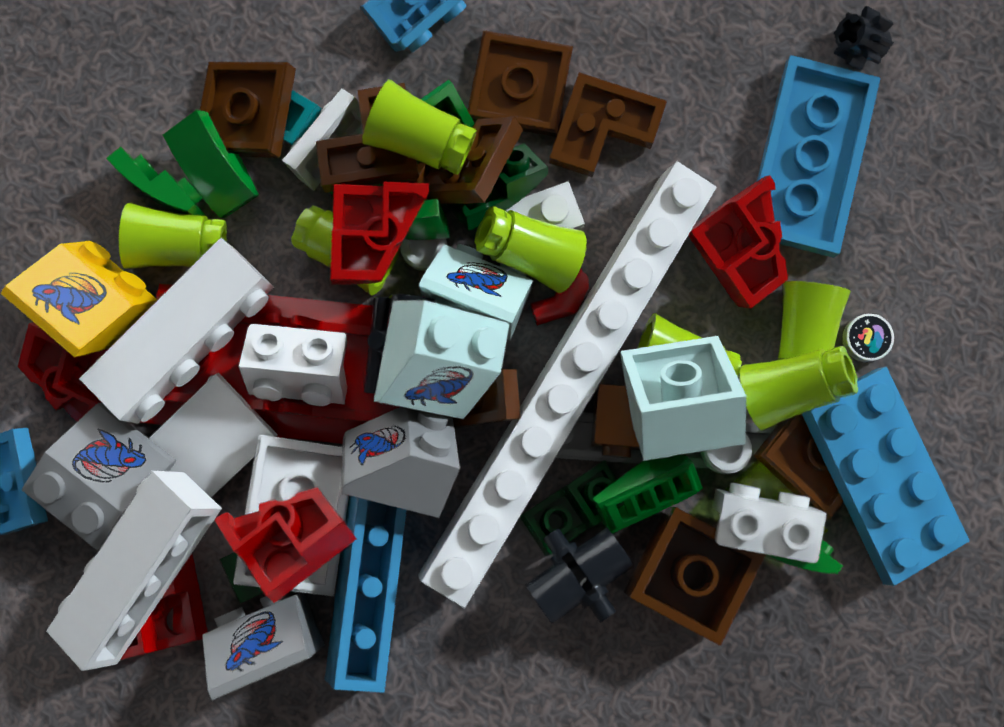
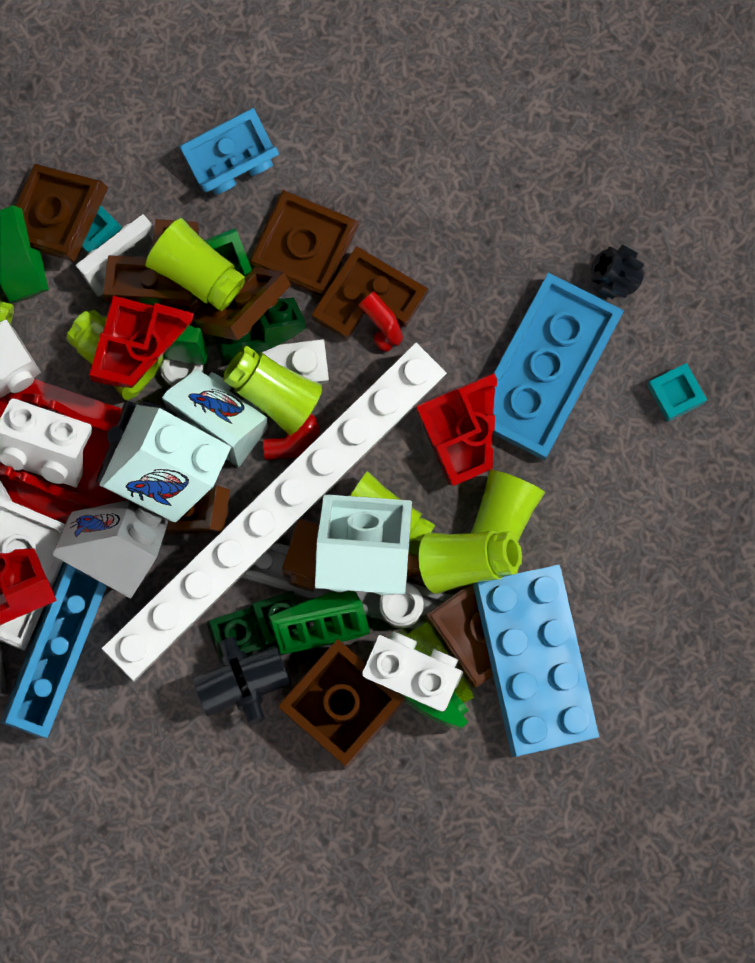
camera: 15 degrees right, 5 degrees down
(630, 144) = (385, 320): none -> red arm
(868, 337) = (556, 538): tile -> none
(956, 153) = (677, 392): none -> teal plate

